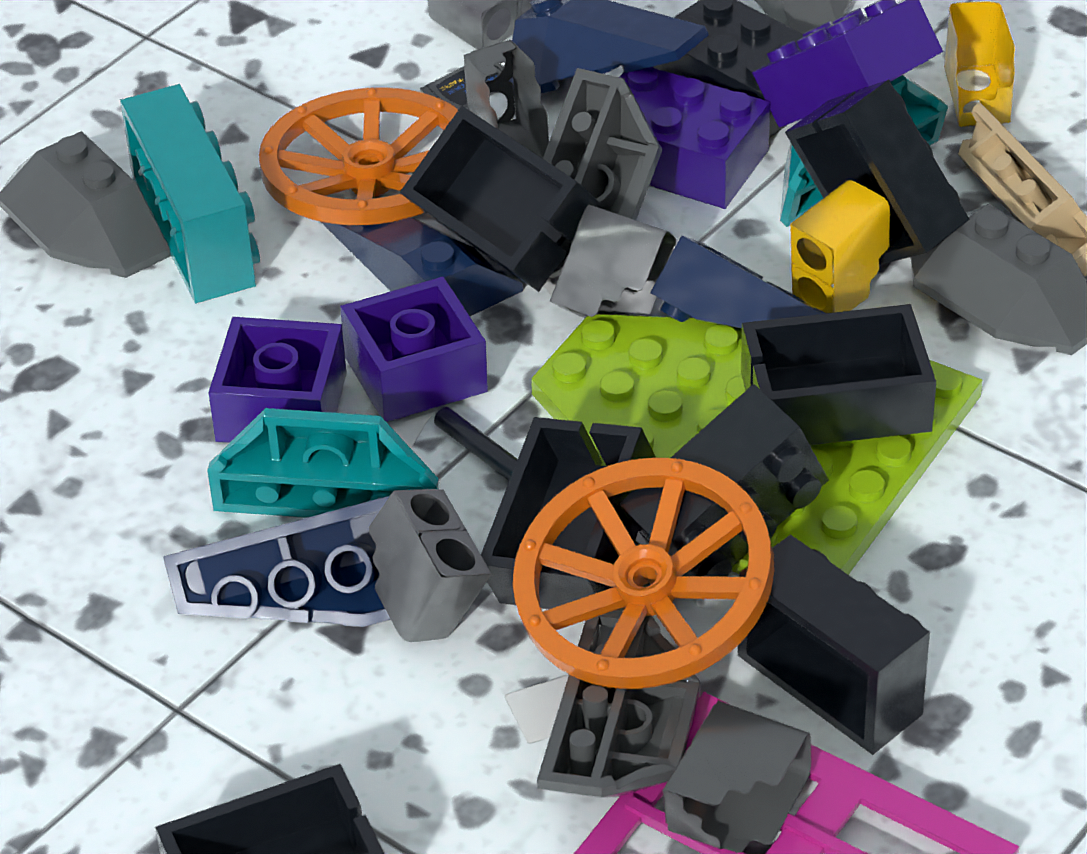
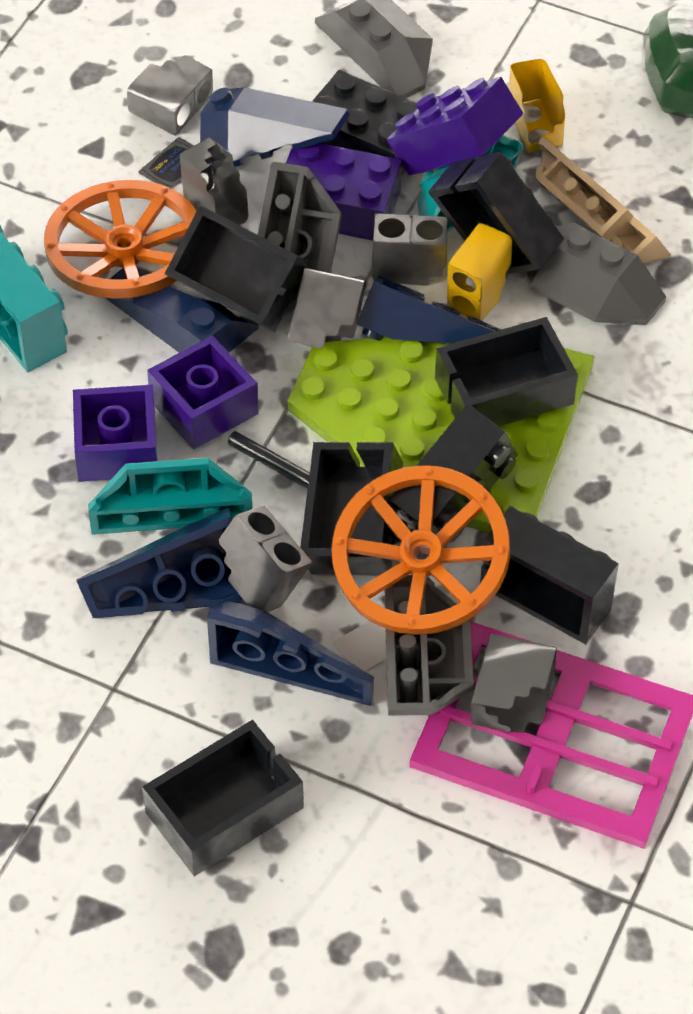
camera: 15 degrees left, 10 degrees up
(406, 685) = (269, 648): none -> dark blue wedge
(749, 209) = (409, 248): none -> flat silver piece

